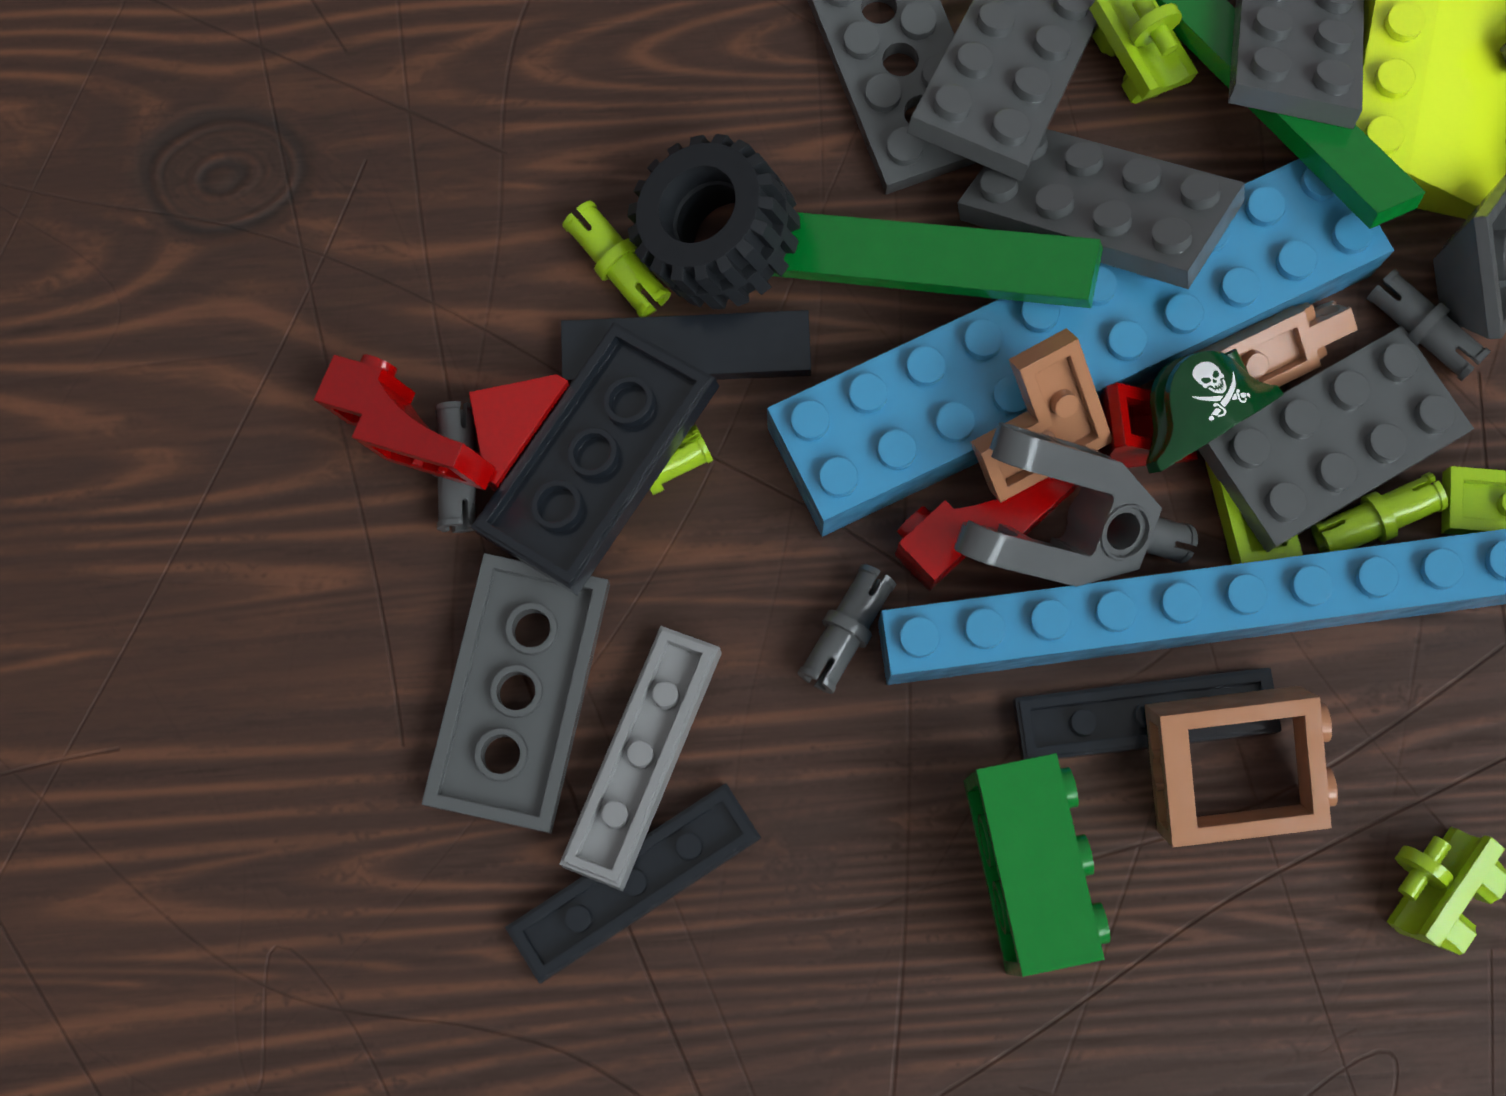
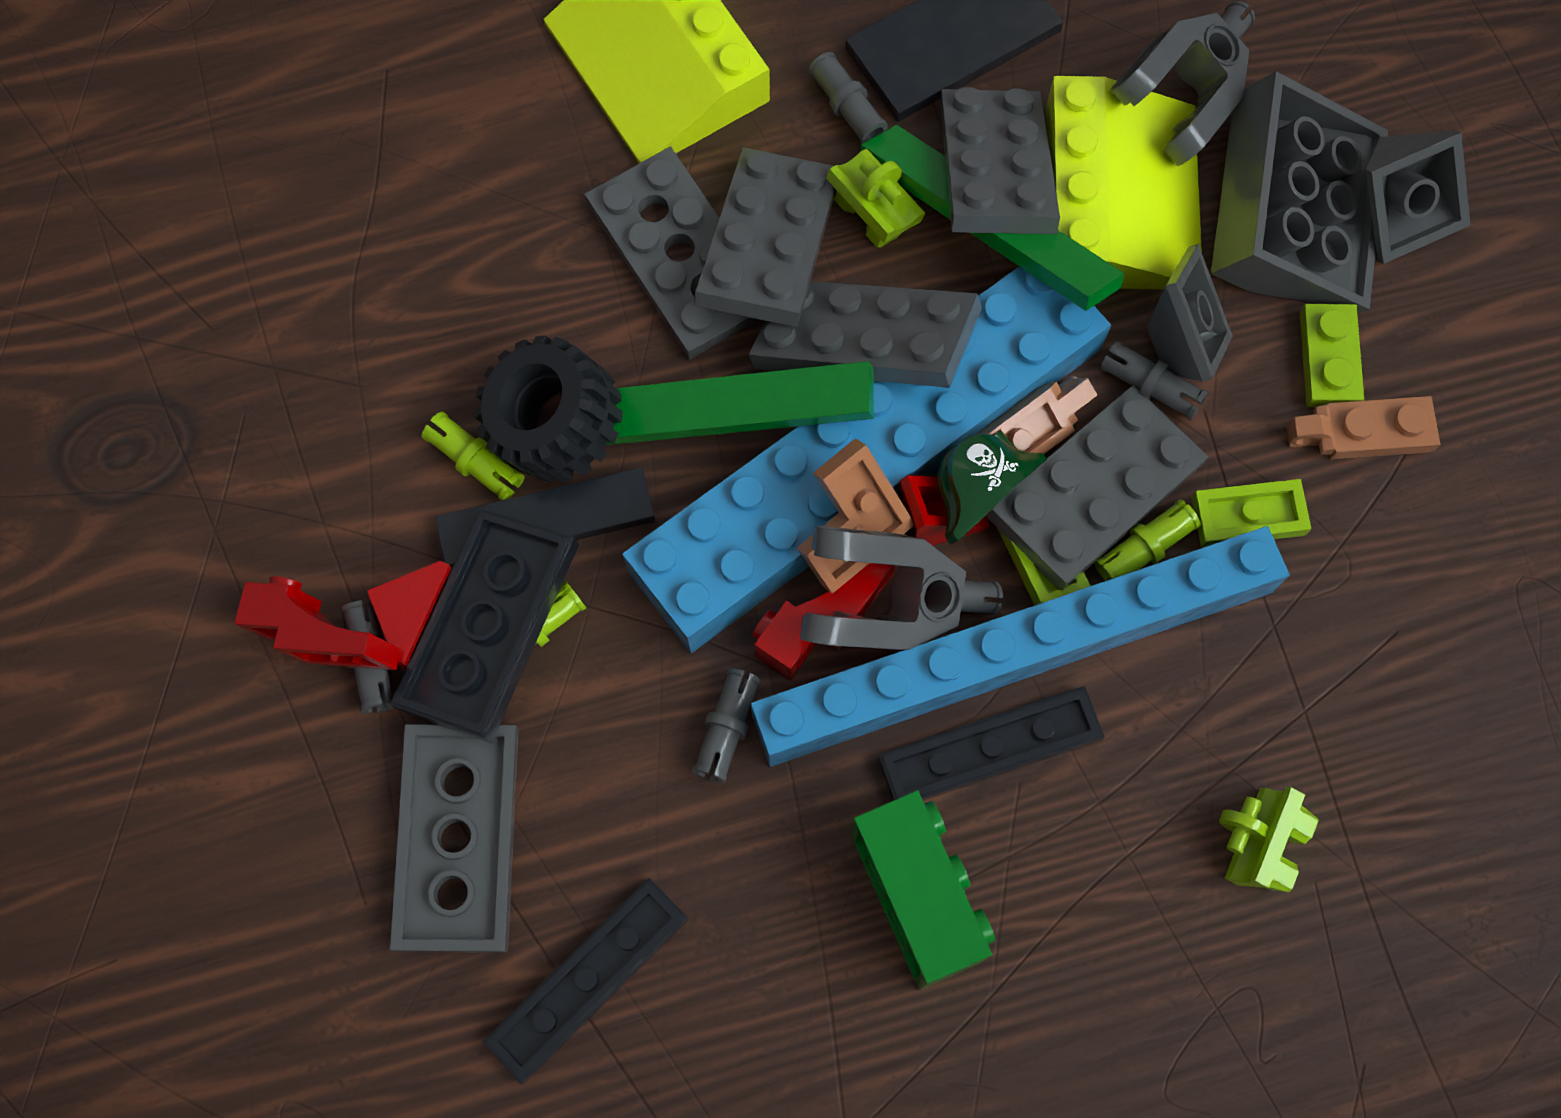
camera: 15 degrees left, 5 degrees down
(641, 758) = (572, 872): light grey tile -> none
(1173, 776) = (1020, 786): nougat window -> none

